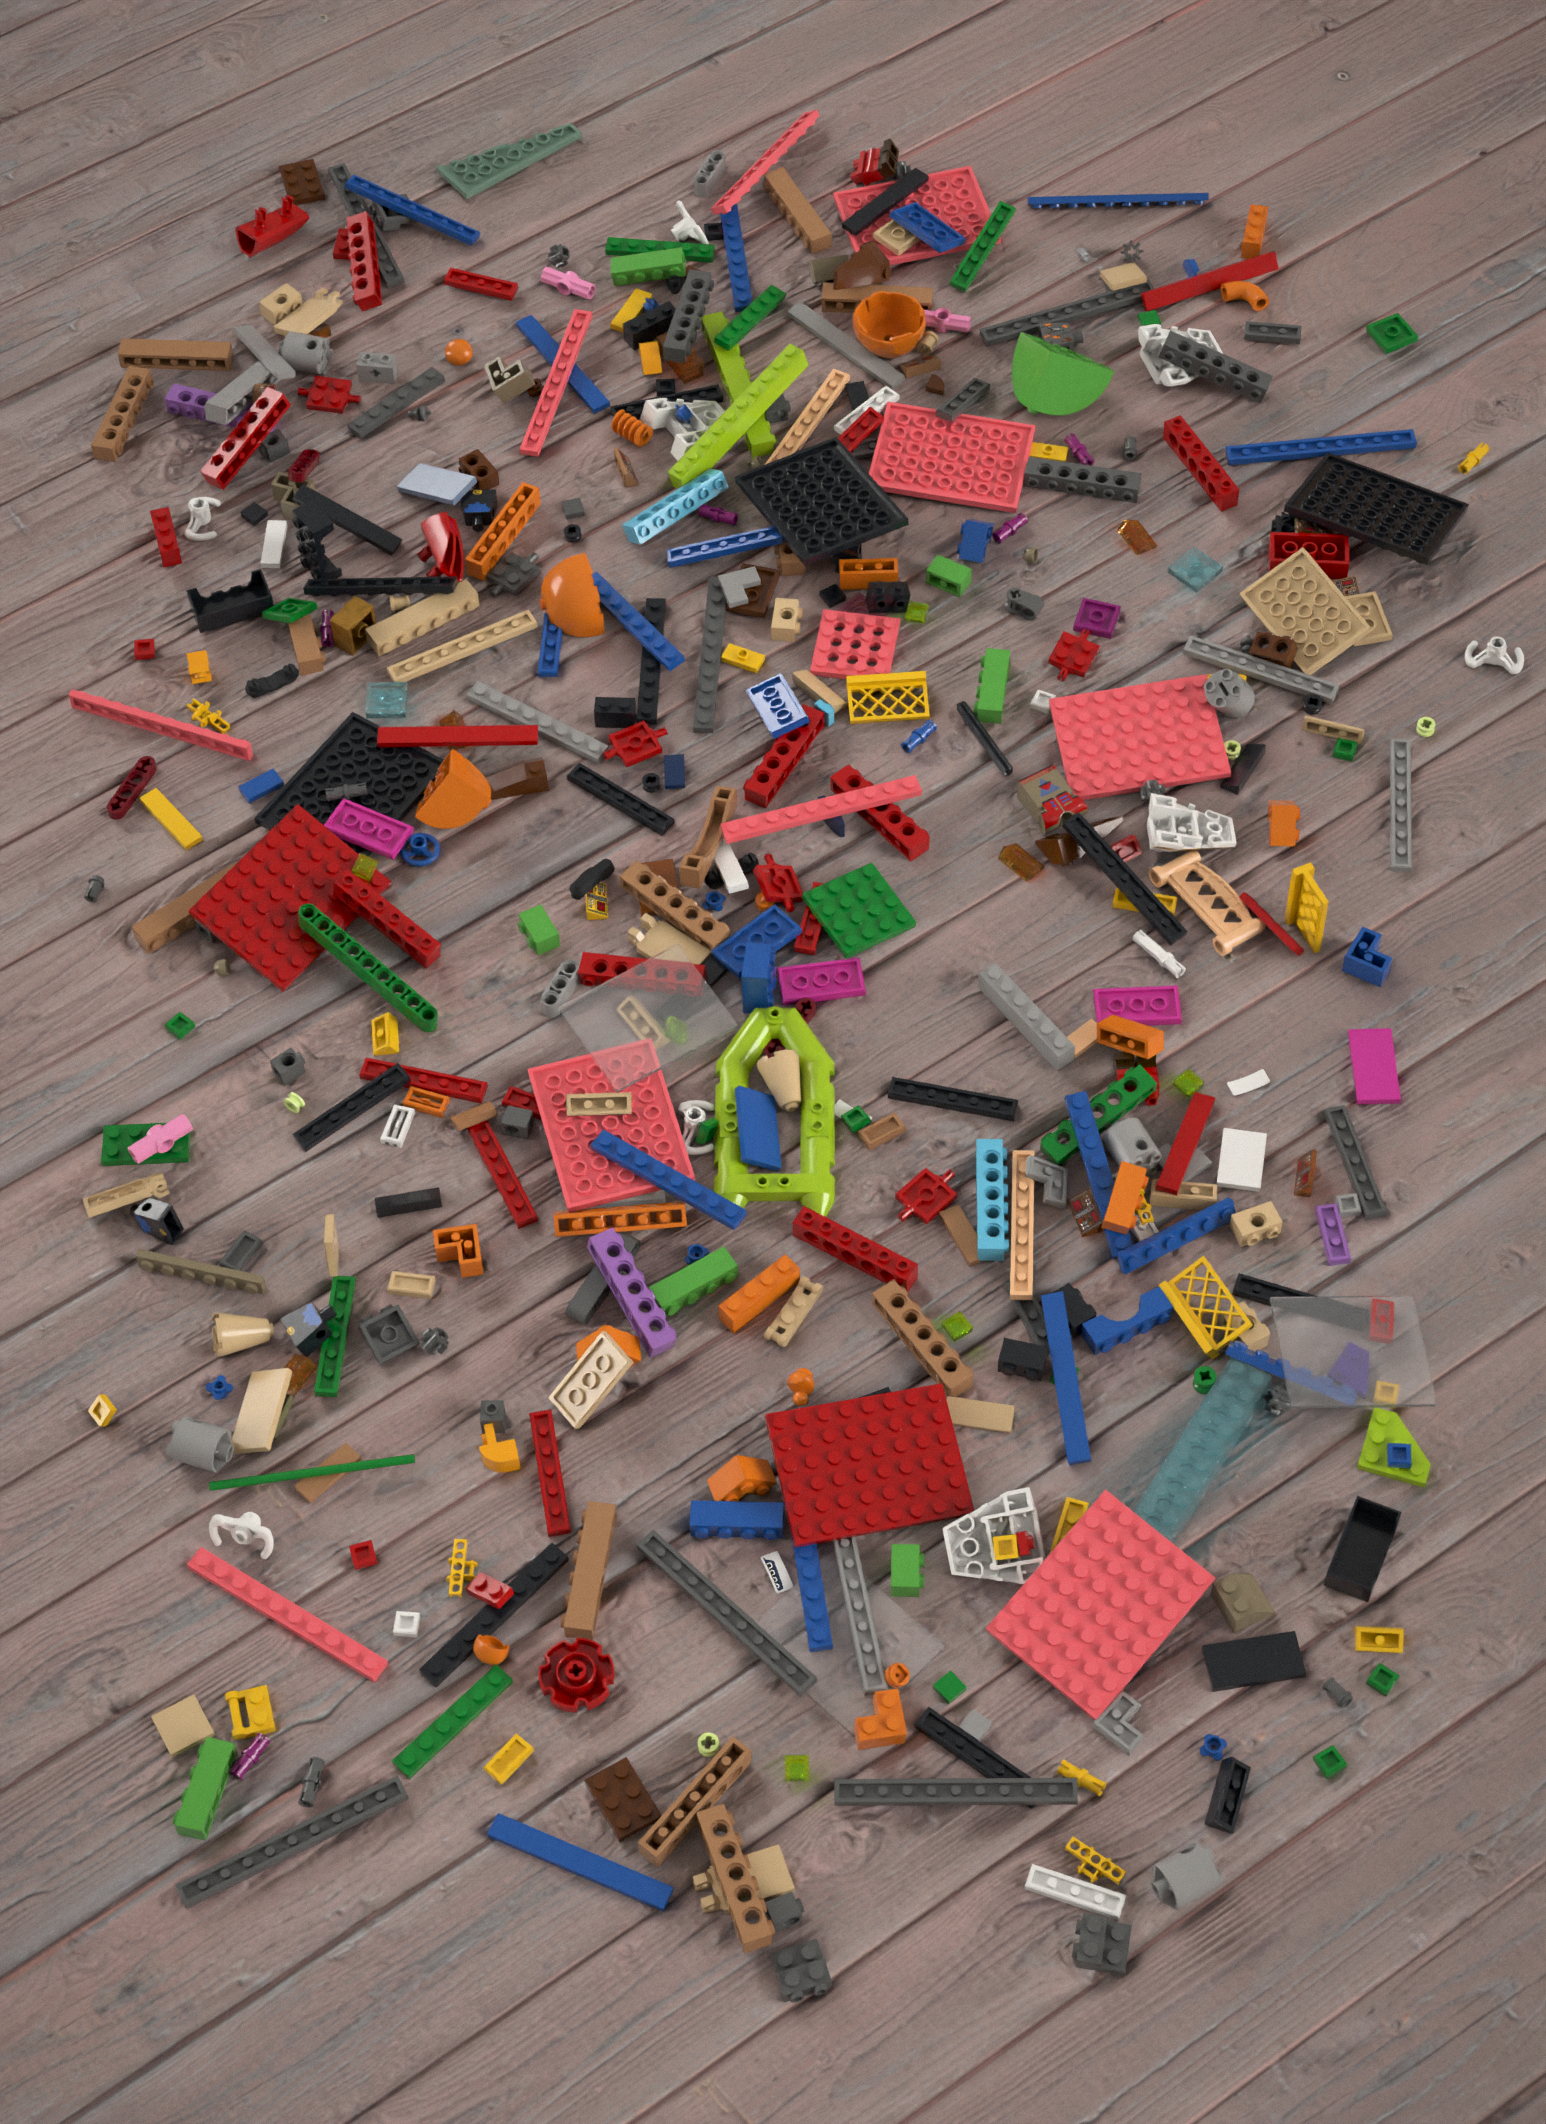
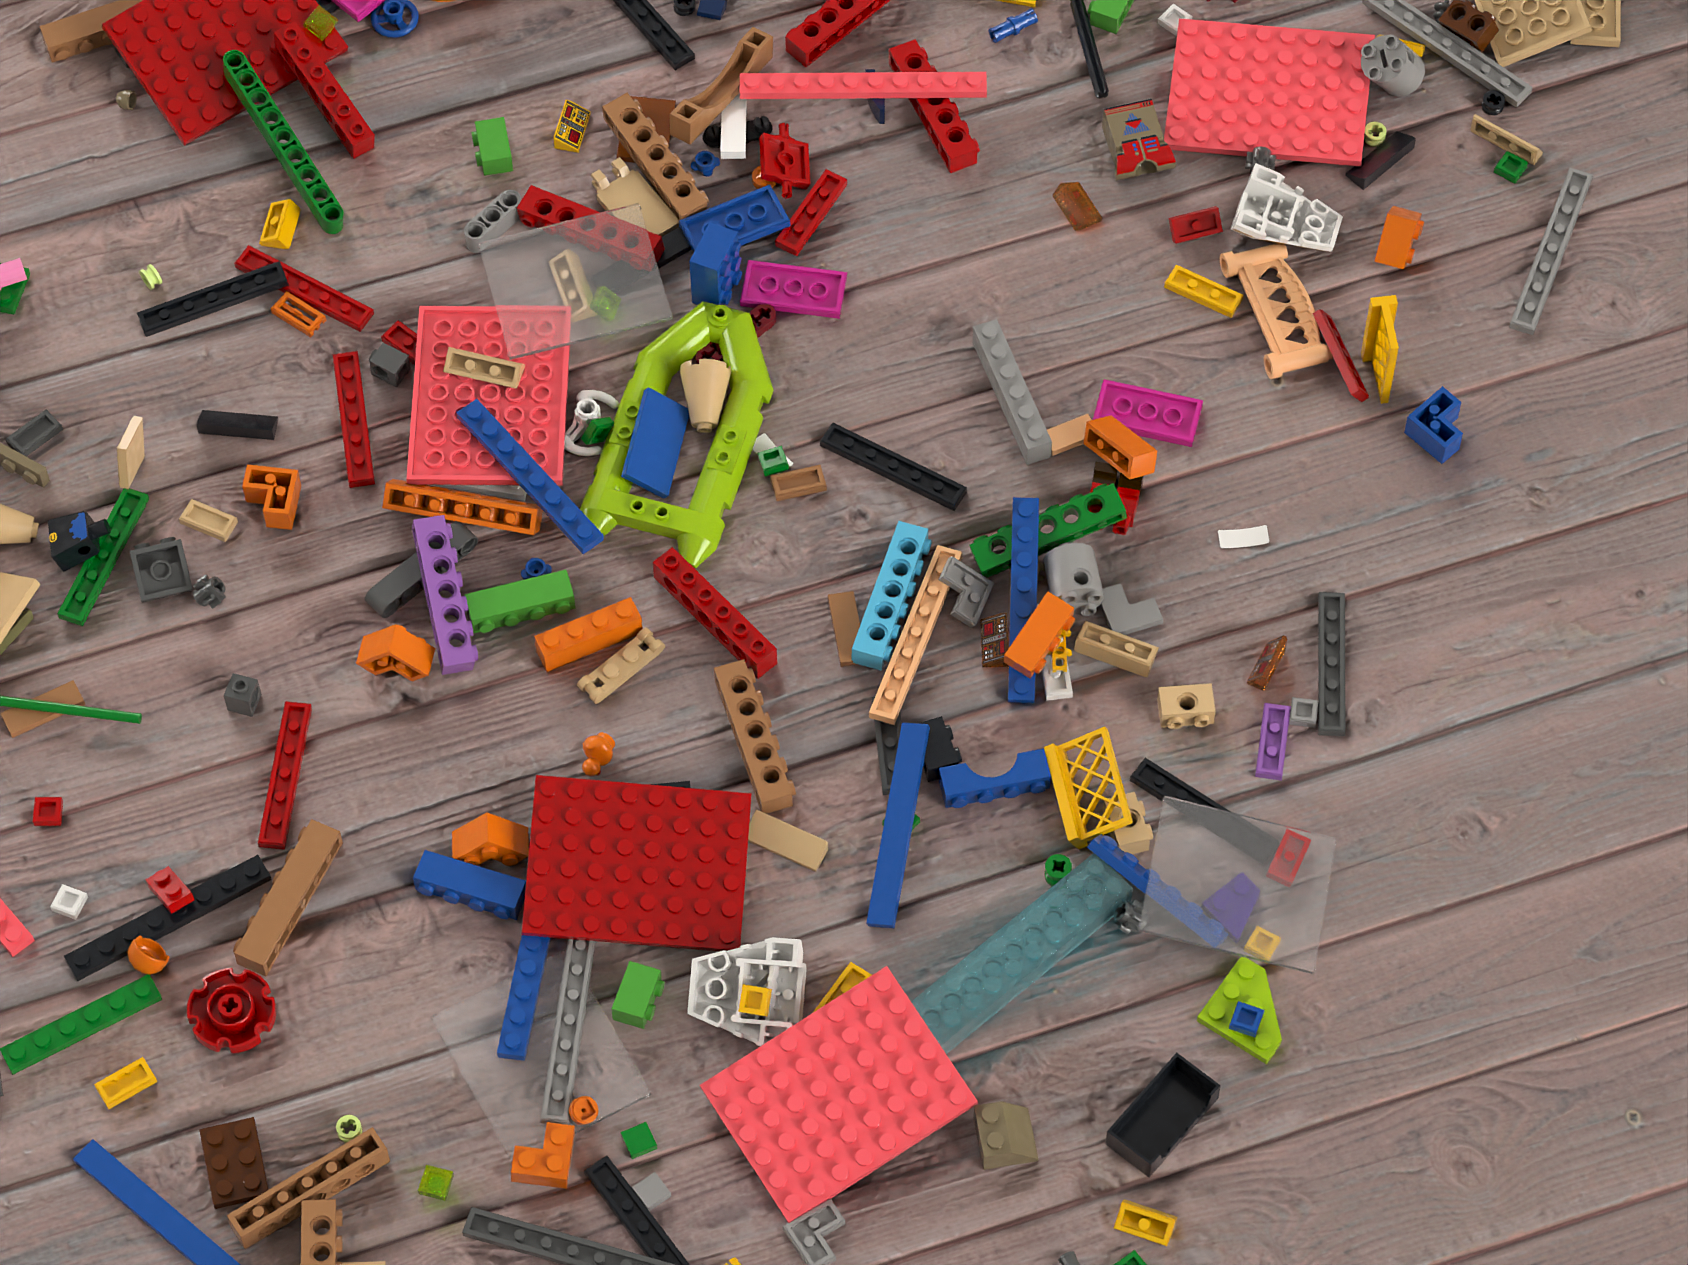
camera: 15 degrees right, 5 degrees up
(180, 1025) = (57, 155): green tile -> none
(288, 1073) = (150, 233): dark grey brick -> none
(302, 1370) = (52, 586): clear orange slope -> none
(392, 1140) = (272, 320): white tile -> none
(460, 1580) = (140, 868): yellow piece -> none
(473, 1116) = (344, 344): medium nougat tile -> none
(496, 1455) = (235, 741): light orange brick -> none
(590, 1380) = (361, 682): tan tile -> none
(591, 878) = (573, 99): black piece -> none
(727, 1613) = (421, 988): dark grey plate -> none
(777, 1572) = (495, 957): white sticker -> none
(859, 910) = (865, 216): green plate -> none
(926, 1195) = (819, 571): red plate -> none
(957, 1326) = (798, 732): clear neon green plate -> none
(1022, 1359) = (857, 791): black brick -> none
(1025, 1543) = (778, 1001): red plate -> none
(1063, 848) = (1135, 202): reddish brown wedge -> none
(1124, 878) = (1184, 257): black plate -> none
(1164, 958) = (1199, 363): white pin -> none
(1176, 1236) = (1088, 694): blue plate -> none
(1185, 1143) = (1140, 589): red tile -> none
(1188, 1083) = (1171, 519): clear neon green plate -> none
(1241, 1159) = (1200, 625): white tile -> none
(1253, 1661) = (992, 1207): black tile -> none
(1374, 1066) = (1397, 556): dark pink tile -> none
(1425, 732) = (1618, 170): yellowish green bush -> none

